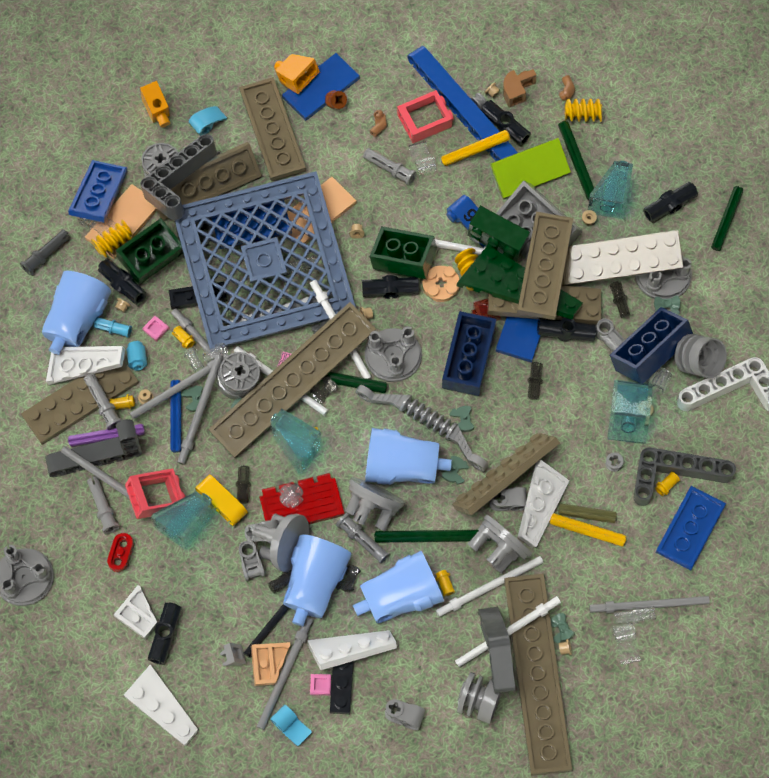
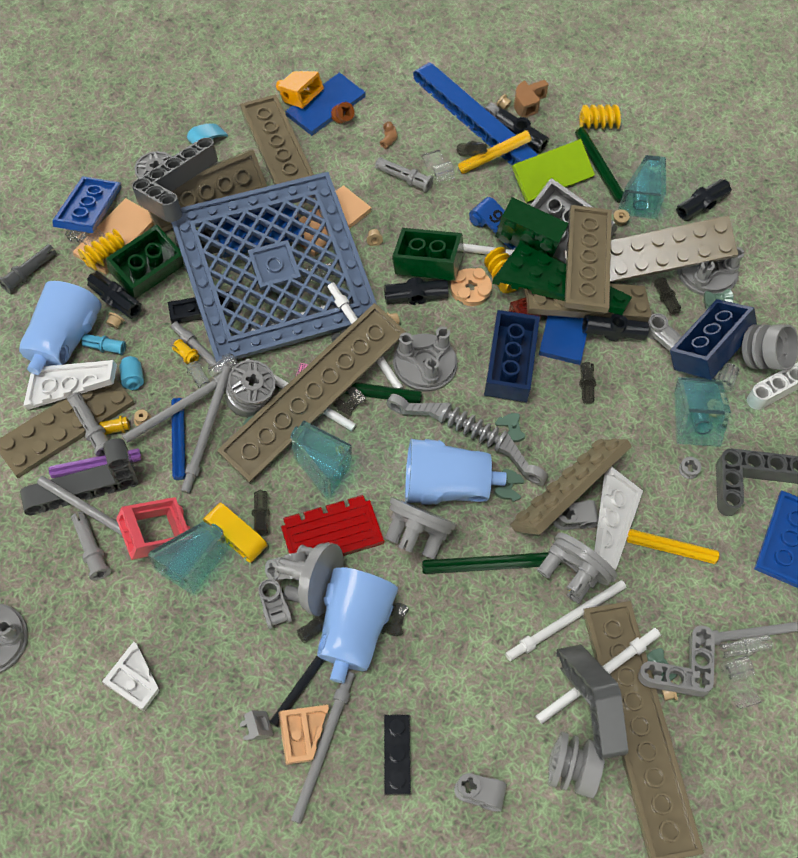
camera: 10 degrees left, 5 degrees down
(120, 553) = (109, 602): red plate -> none
(155, 103) = (153, 124): light orange torso -> none
(155, 328) = (153, 344): bright pink tile -> none
(160, 705) = (161, 796): white wing -> none
(161, 645) = (164, 717): black piece -> none
(195, 393) = (199, 411): sand green piece -> none
(290, 725) = (335, 816): medium azure panel -> none
(291, 495) = (319, 522): clear gear -> none
(320, 684) = (370, 757): bright pink tile -> none
(344, 649) = (400, 709): white wing -> none
(355, 532) = (399, 560): light grey pin -> none
(400, 590) = (462, 630): light blue torso -> none
(428, 130) = (443, 138): coral window -> none
(445, 583) = (512, 618): yellow pin -> none
(454, 143) = (471, 148): none -> clear smoke axle
(569, 88) = (580, 97): medium nougat arm -> none
(581, 636) = (688, 675): none -> light grey beam
(587, 513) = (668, 527): olive axle -> none
(663, 487) = (752, 492): yellow pin -> none
(727, 218) = (764, 214): dark green axle -> none

